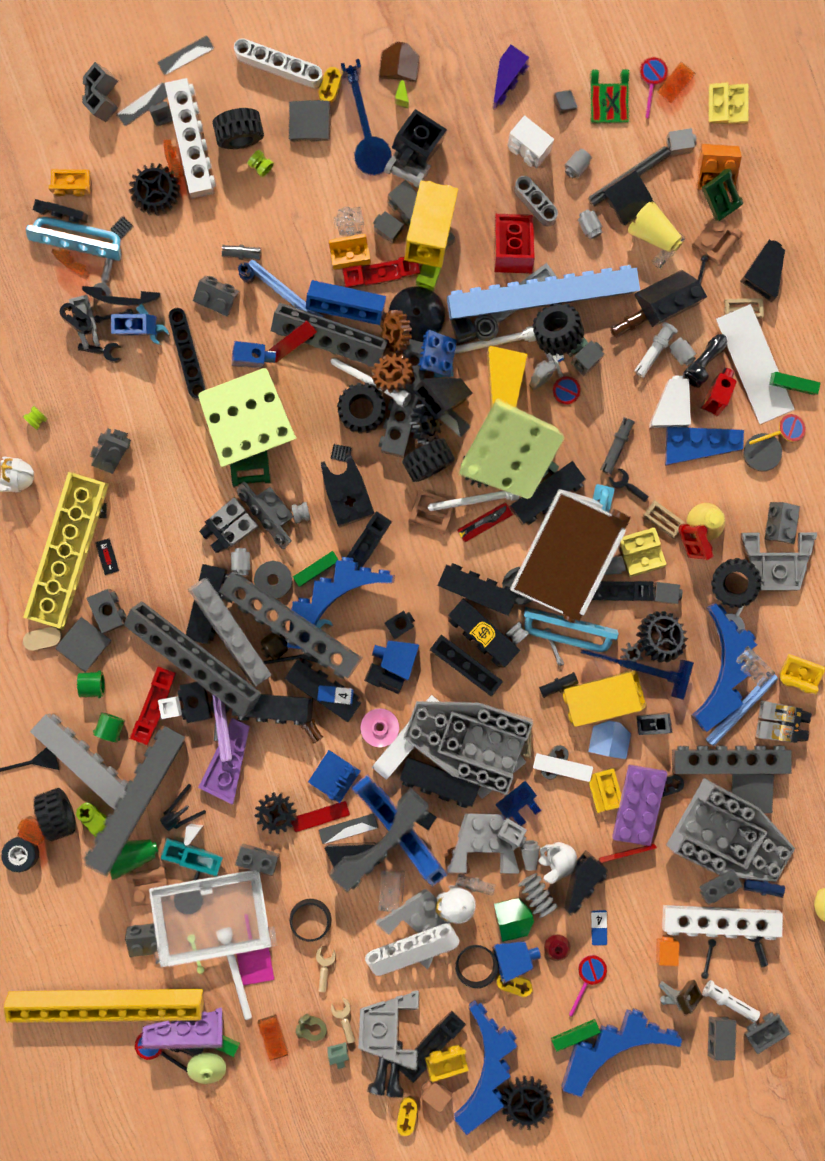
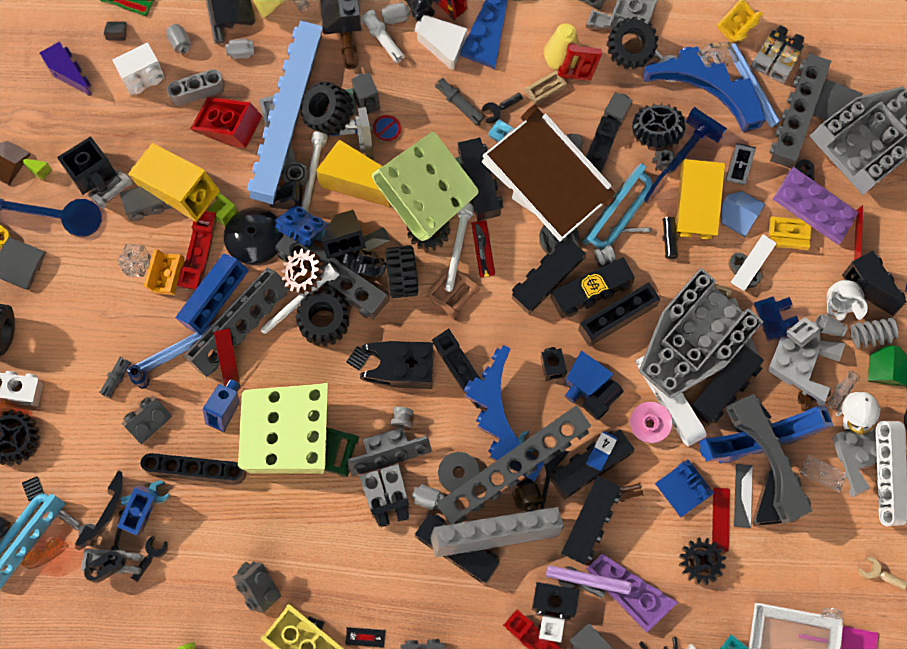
camera: 65 degrees left, 15 degrees down
(192, 659) = (514, 571): dark grey brick -> none
(257, 859) = (745, 598): dark grey brick -> none
(260, 163) = (36, 324): lime wheel -> none
(315, 569) = (464, 425): green piece -> none
(321, 905) = (811, 582): black tyre -> none
(388, 227) = (156, 228): dark grey brick -> none
(396, 331) = (263, 254): dark orange gear -> none
(642, 552) = (571, 115): light yellow slope -> none

